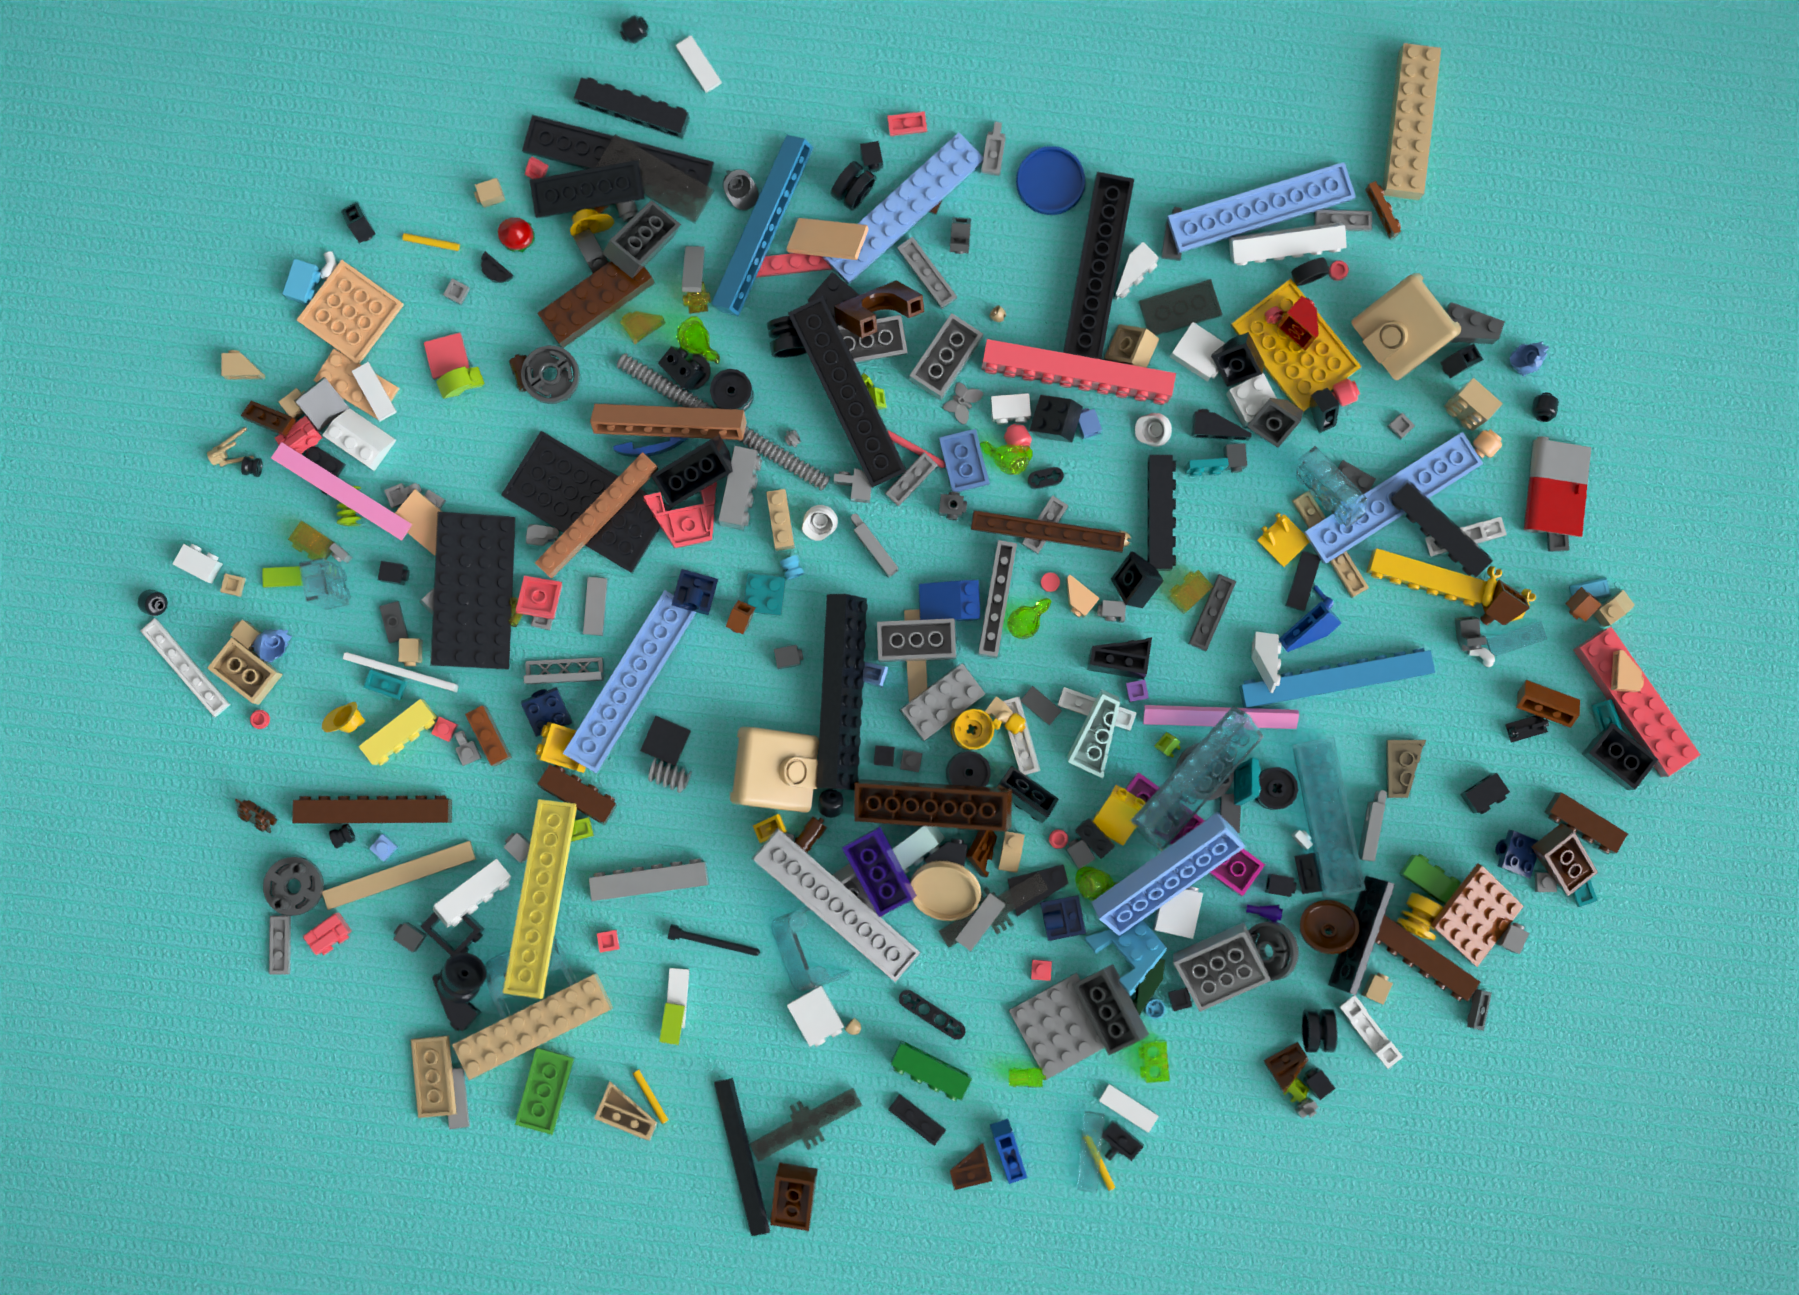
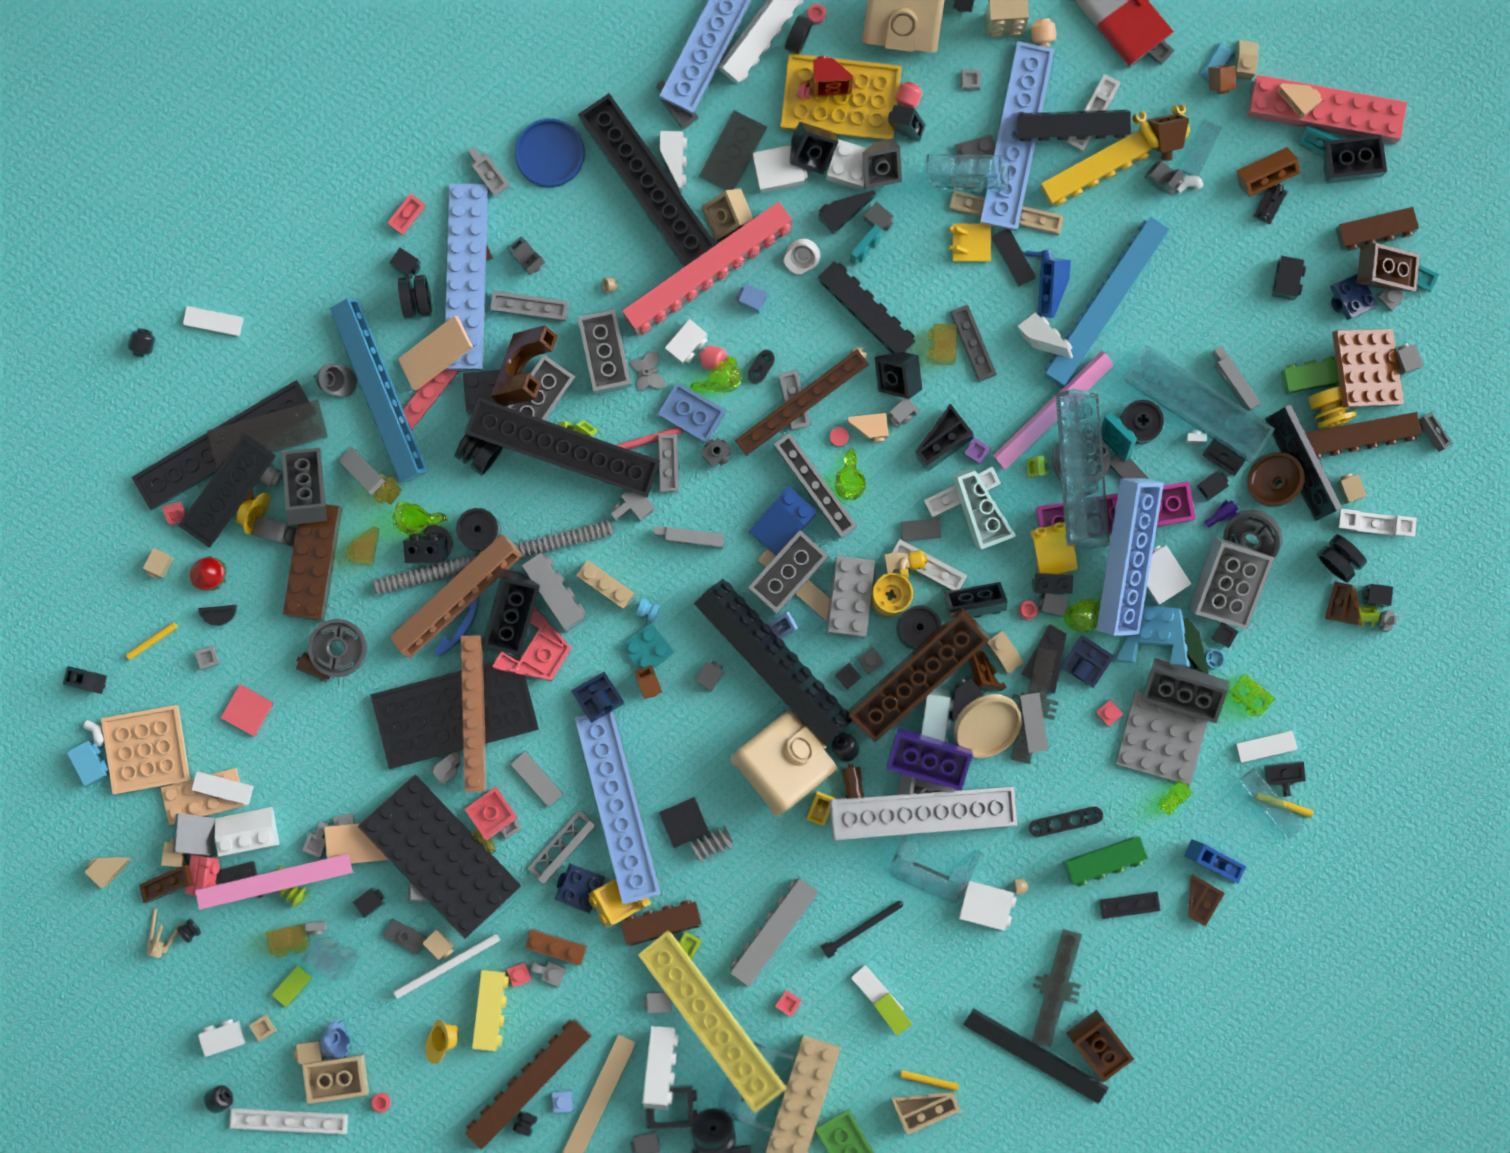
camera: 40 degrees left, 0 degrees up
(385, 684) = (445, 986): teal plate -> none
(459, 380) = (275, 719): lime brick -> none
(632, 108) = (197, 400): black brick -> none
(792, 438) = (554, 519): light grey plate -> none
(819, 522) = (635, 559): white hat -> none
(1056, 418) = (726, 317): black brick -> none
(1401, 764) = (1211, 317): dark tan wing -> none

